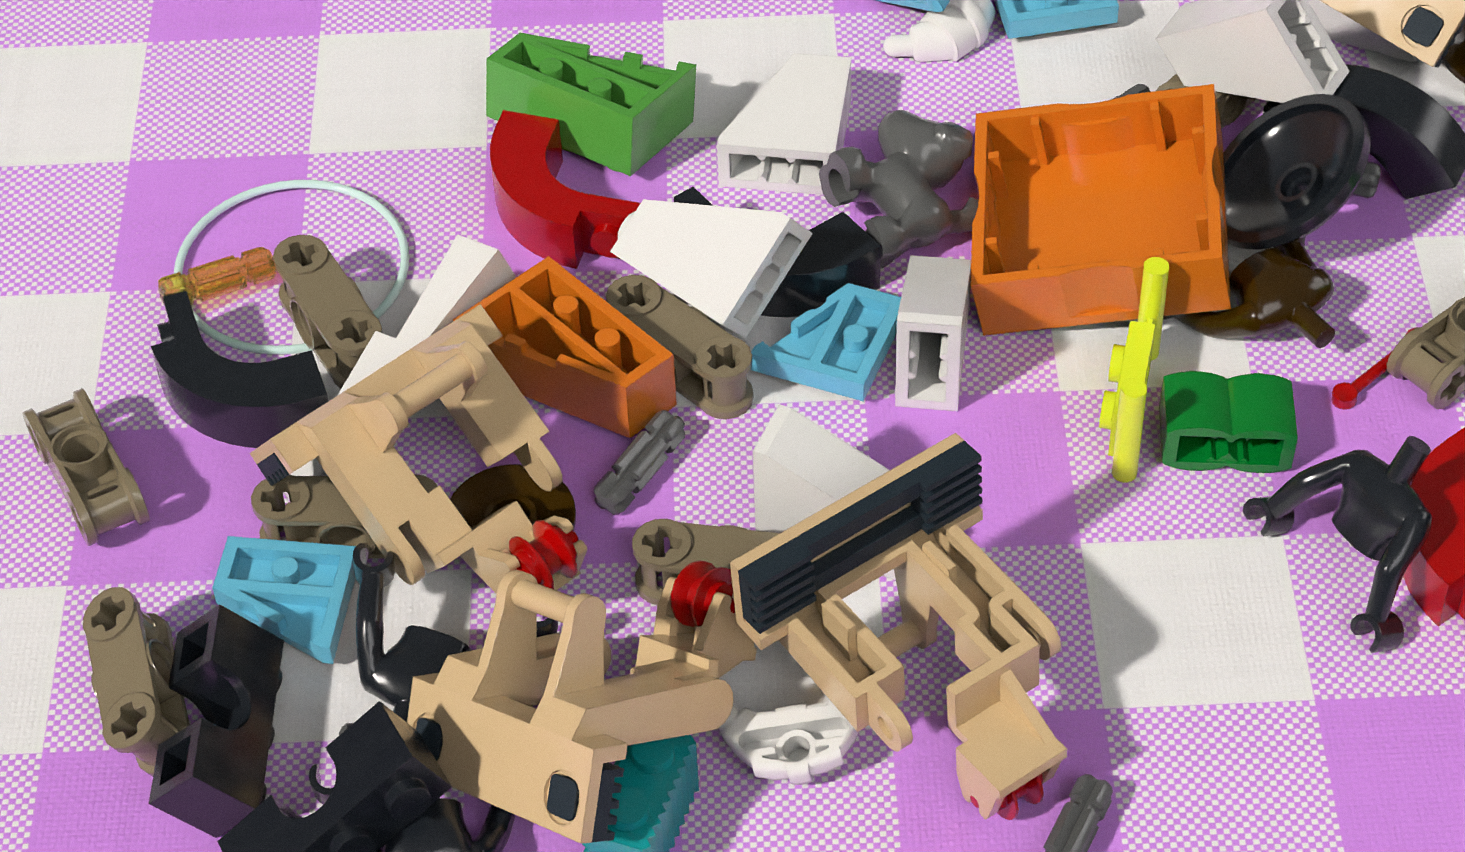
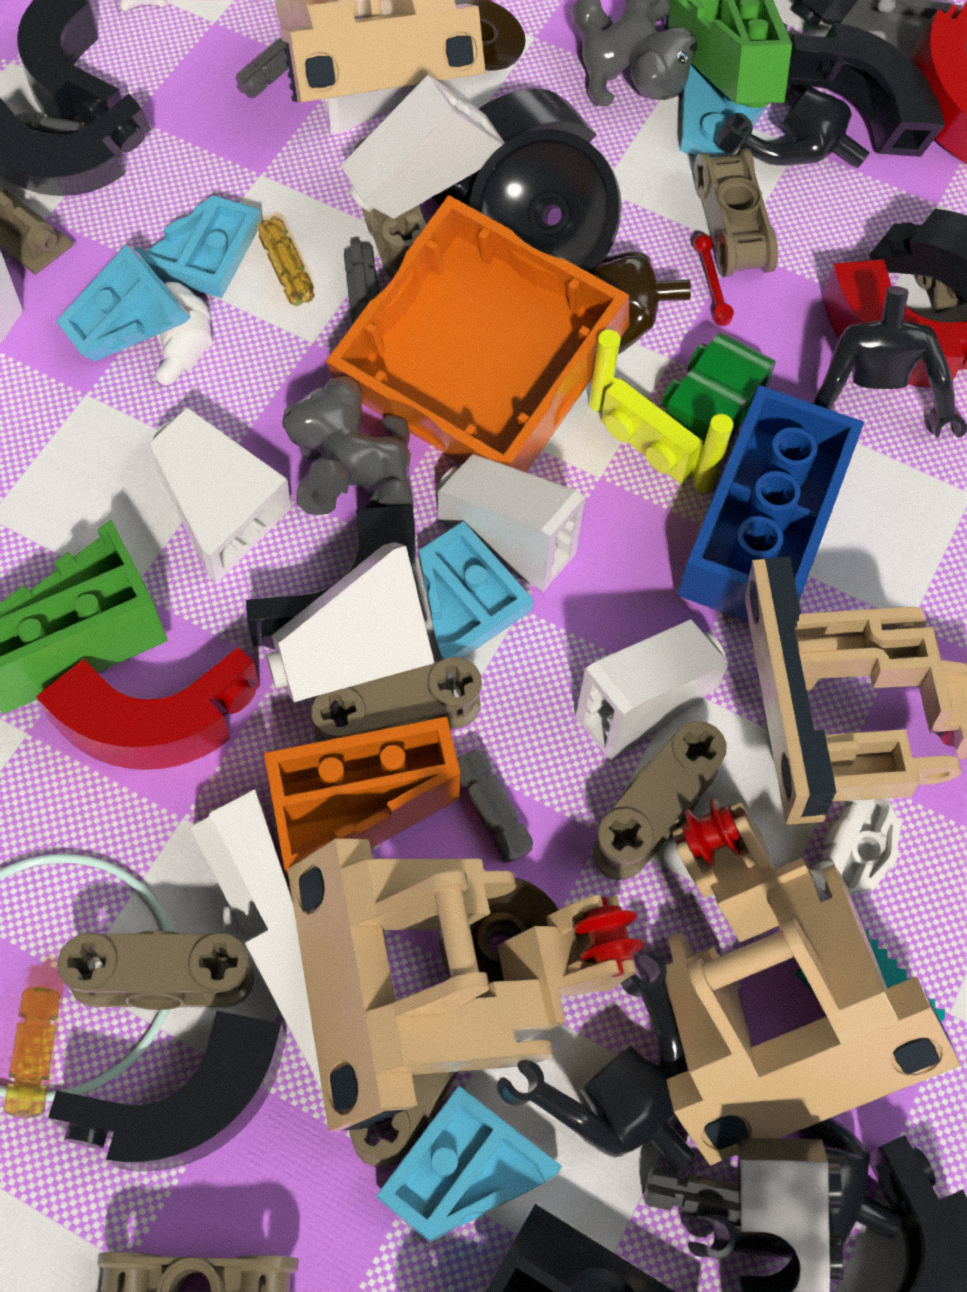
camera: 65 degrees left, 15 degrees up
(1087, 57) = (286, 261): none -> clear yellow axle
(1120, 507) = (770, 498): none -> blue brick

